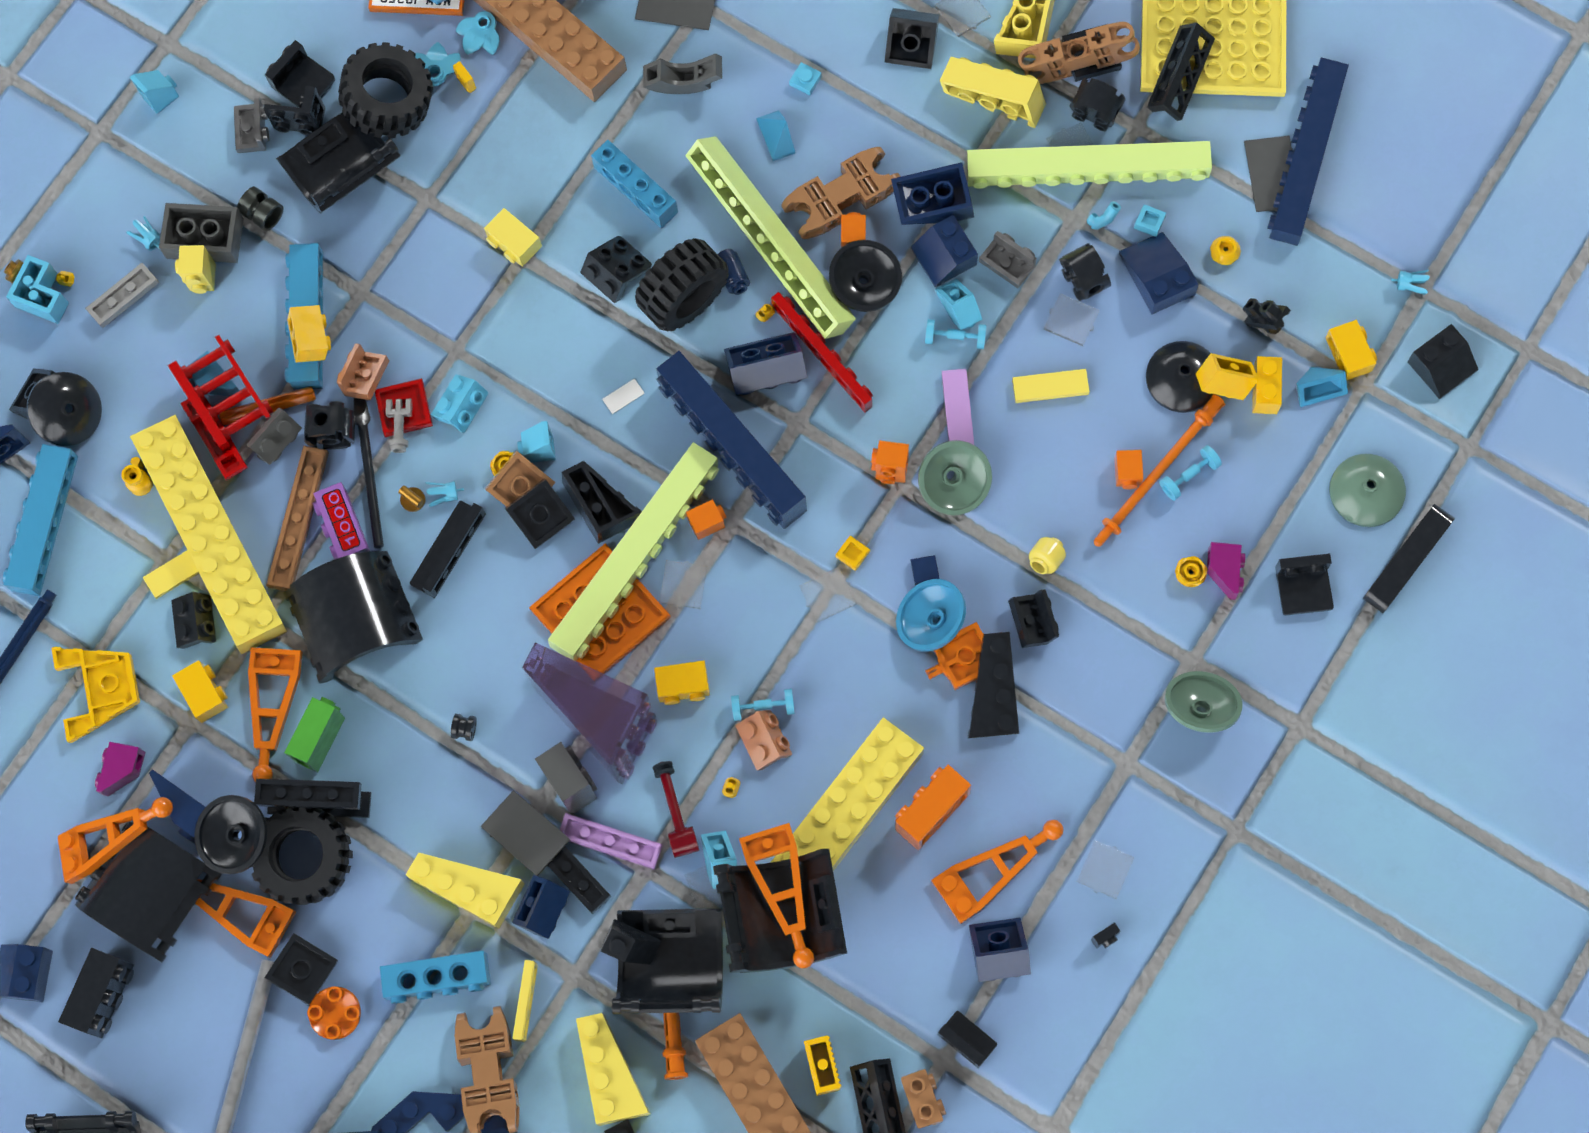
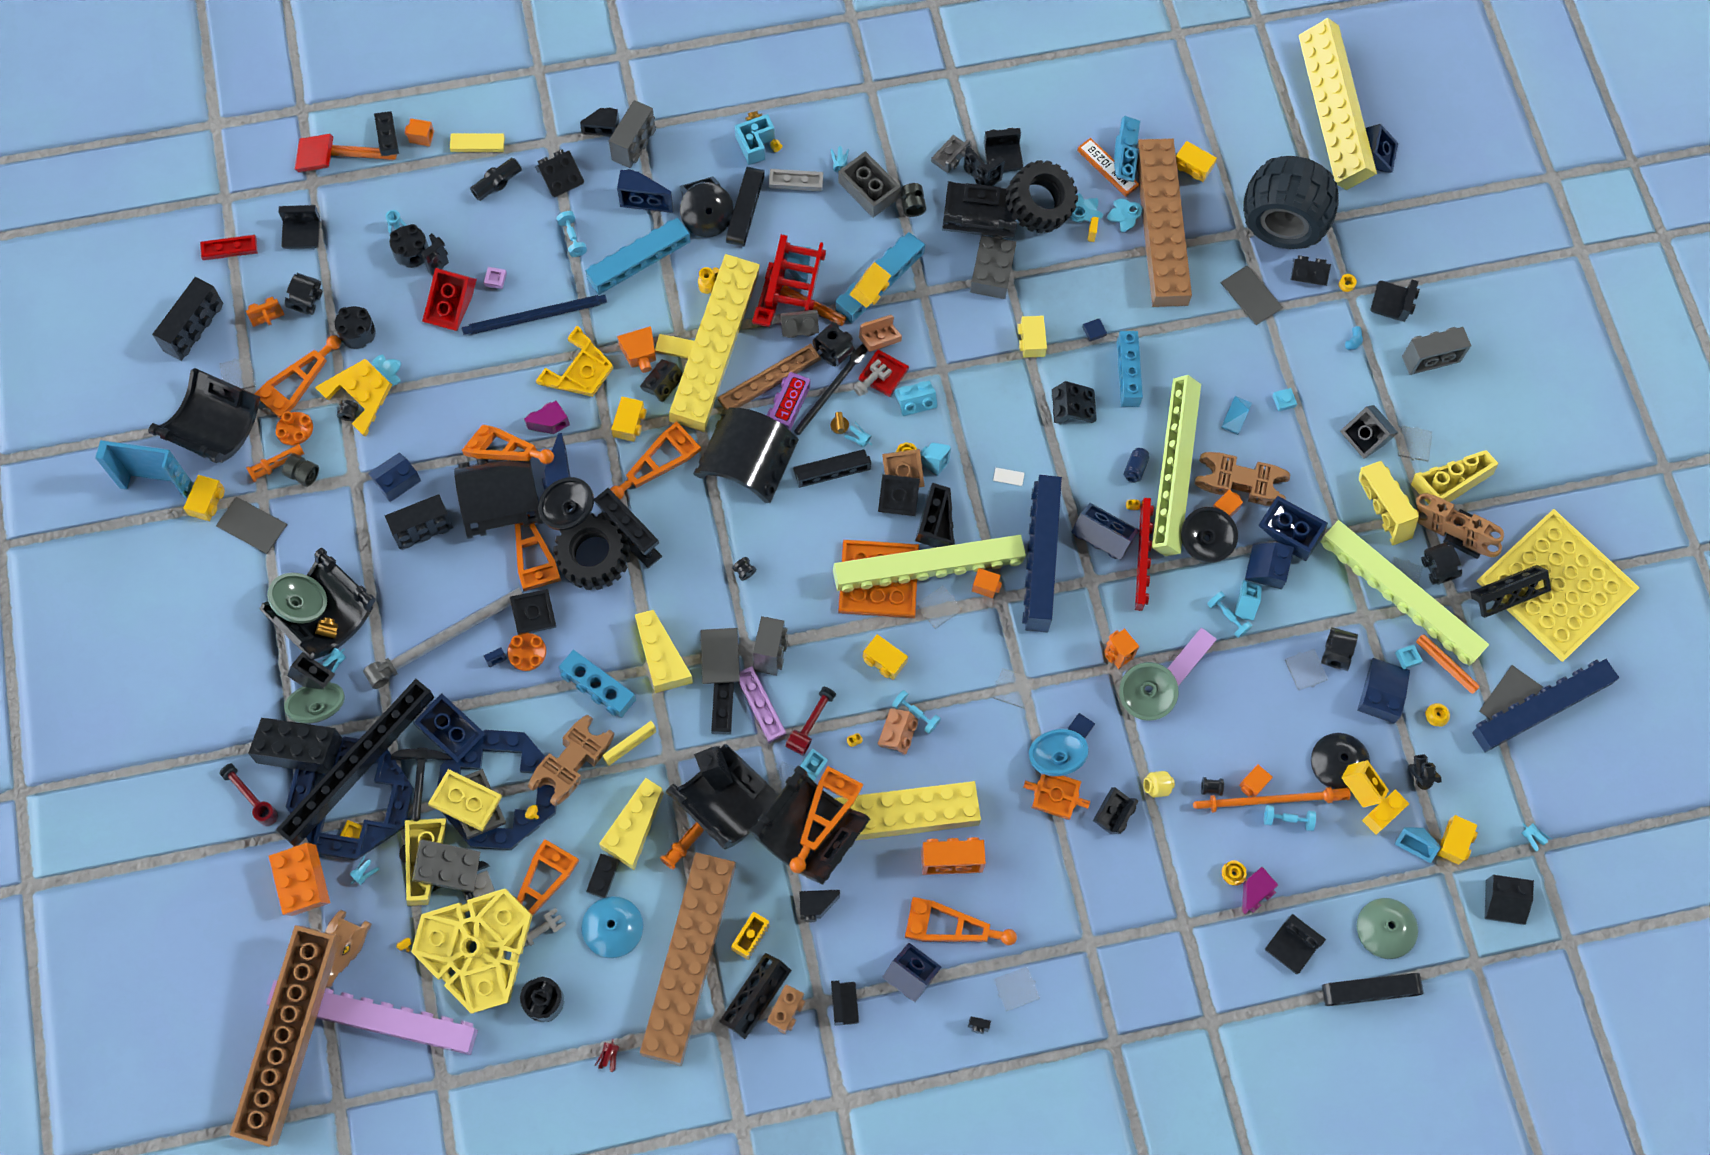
camera: 35 degrees right, 5 degrees down
(98, 369) = (745, 206): none -> black beam
(137, 611) = (638, 348): none -> orange torso
(155, 89) = (921, 89): medium azure slope -> none
(196, 268) = (847, 200): light yellow brick -> none
(309, 1049) = (495, 657): none -> dark blue tile
(315, 733) = (663, 496): bright green brick -> none
(405, 203) = (993, 267): none -> dark grey brick
(541, 907) = (688, 702): dark blue brick -> none
(563, 176) = (1094, 330): none -> dark blue tile
(595, 707) = (822, 623): clear purple windscreen -> none
(681, 284) = (1099, 443): black tyre -> none
(682, 77) = (1214, 336): dark grey arch -> none
(851, 975) = (816, 903): none -> black slope
(852, 553) = (1050, 679): yellow tile -> none
(995, 696) = (1049, 832): black wing -> none
(1008, 259) = (1302, 602): flat silver bracket -> none
(1050, 386) = (1256, 694): light yellow tile -> none
(1095, 510) = (1212, 786): none -> black bush
(1106, 218) = (1383, 632): medium azure arm -> none
(1182, 193) = (1448, 664): none -> orange axle
(1203, 701) = (1166, 950): sand green dish -> none

